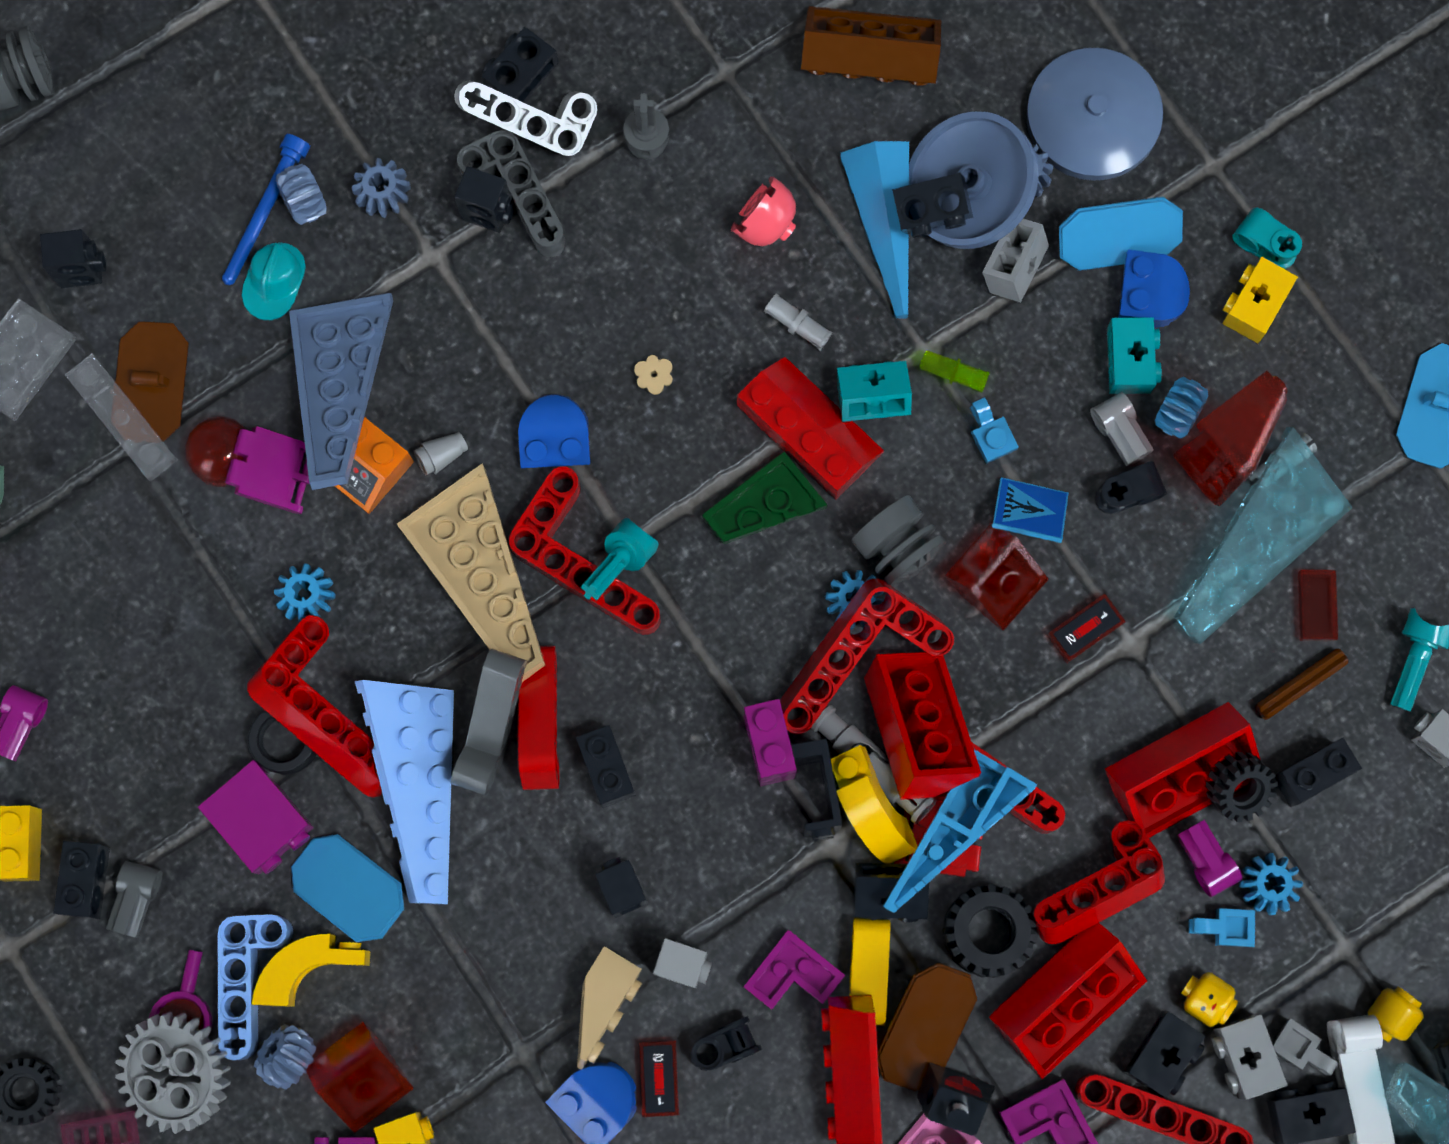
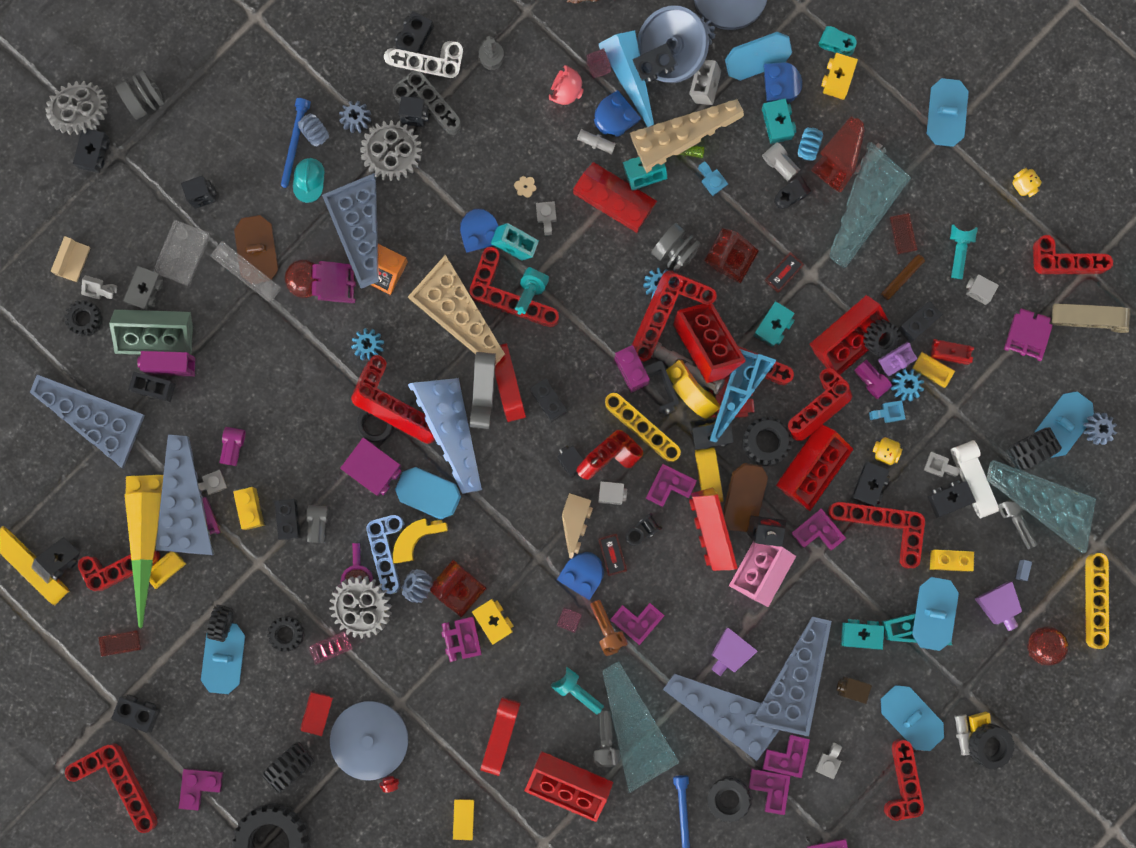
camera: 10 degrees left, 5 degrees up
(413, 235) = (379, 139): none -> light grey gear
(439, 452) = (421, 253): light grey cone -> none
(610, 467) = (514, 242): none -> teal brick
(679, 431) = (546, 214): none -> light grey plate
(711, 878) = (617, 446): none -> red beam
(763, 836) = (639, 418): none -> yellow beam
(764, 501) = (599, 242): dark green wing -> none
(832, 186) = (598, 63): none -> clear pink panel
(842, 283) = (615, 115): none -> blue slope
(950, 340) = (681, 133): none -> tan wing
(1030, 510) = (741, 216): piece -> none
(1056, 700) = (776, 314): none -> teal brick
(1262, 832) = (897, 359): none -> medium lavender hips
(1264, 1069) = (922, 481): light grey brick -> none
(1324, 866) = (933, 370): none -> yellow tile
(1365, 841) = (951, 352): none -> red hinge
(1397, 1013) = (985, 437): yellow head -> none

